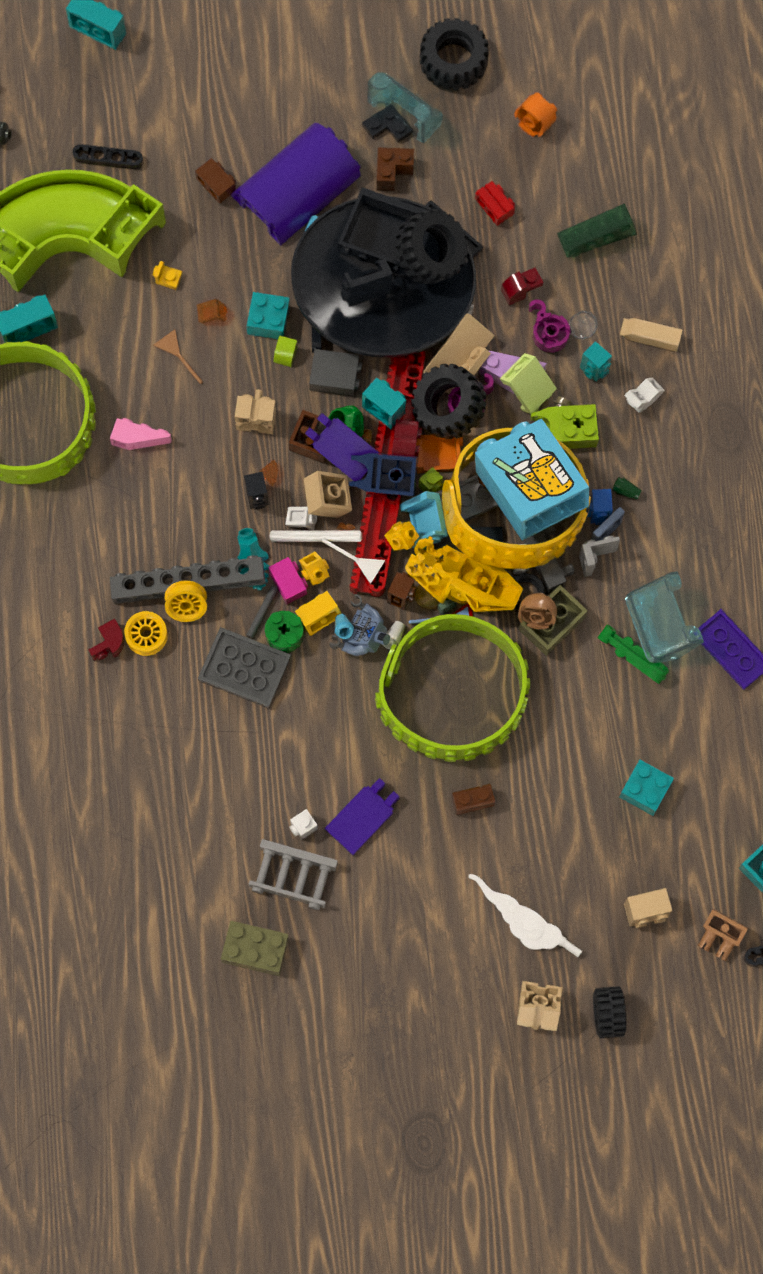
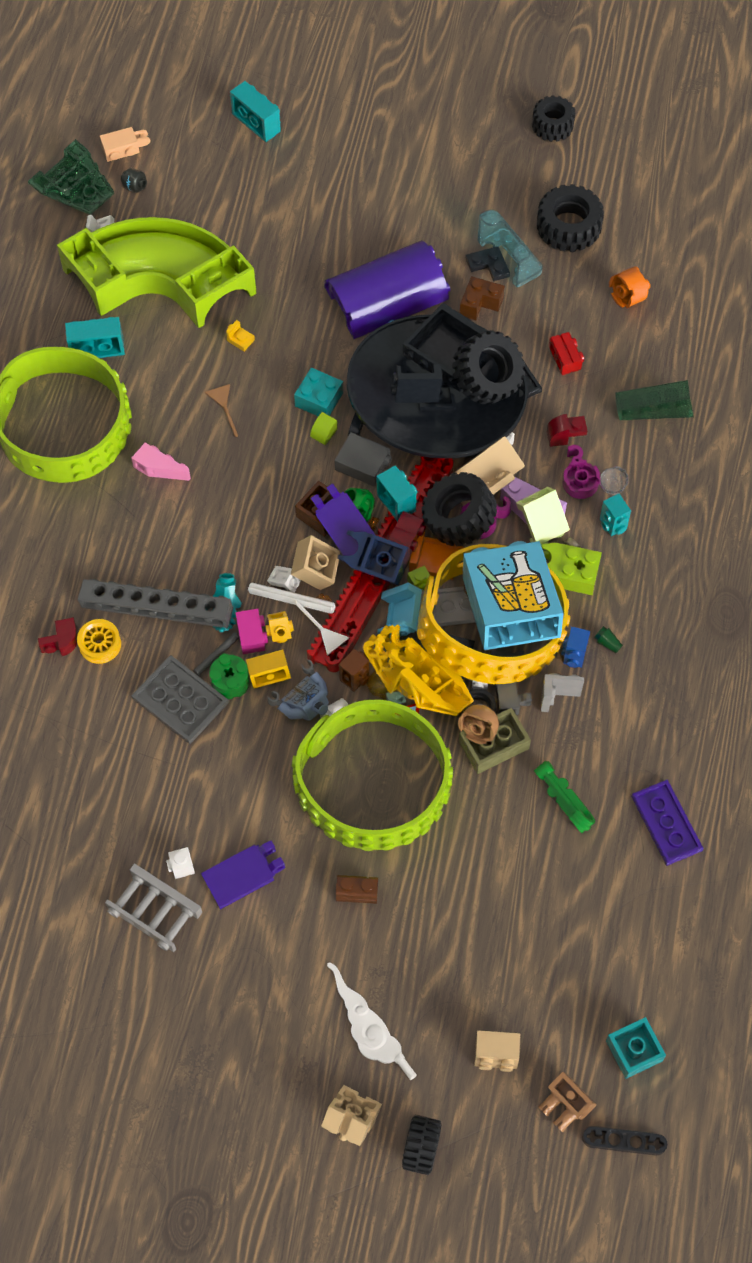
camera: 20 degrees right, 10 degrees down
(107, 158) = (223, 226): black beam -> none
(185, 601) = (145, 620): yellow wheel -> none
(211, 311) = (268, 375): clear orange bracket -> none
(215, 180) = (313, 267): reddish brown brick -> none
(254, 948) = (89, 968): olive brick -> none
(255, 413) = (274, 473): tan brick -> none
(256, 490) = (249, 540): black brick -> none
(270, 472) = (270, 531): clear orange tile -> none
(343, 627) = (286, 687): medium azure cone -> none
(402, 536) = (372, 618): yellow brick -> none
(608, 525) = (579, 666): sand blue tile -> none
(644, 395) = (654, 559): white brick -> none
(646, 787) = (535, 930): teal brick -> none
(651, 333) = (679, 506): tan piece -> none
(660, 620) = (599, 771): clear light blue windscreen -> none

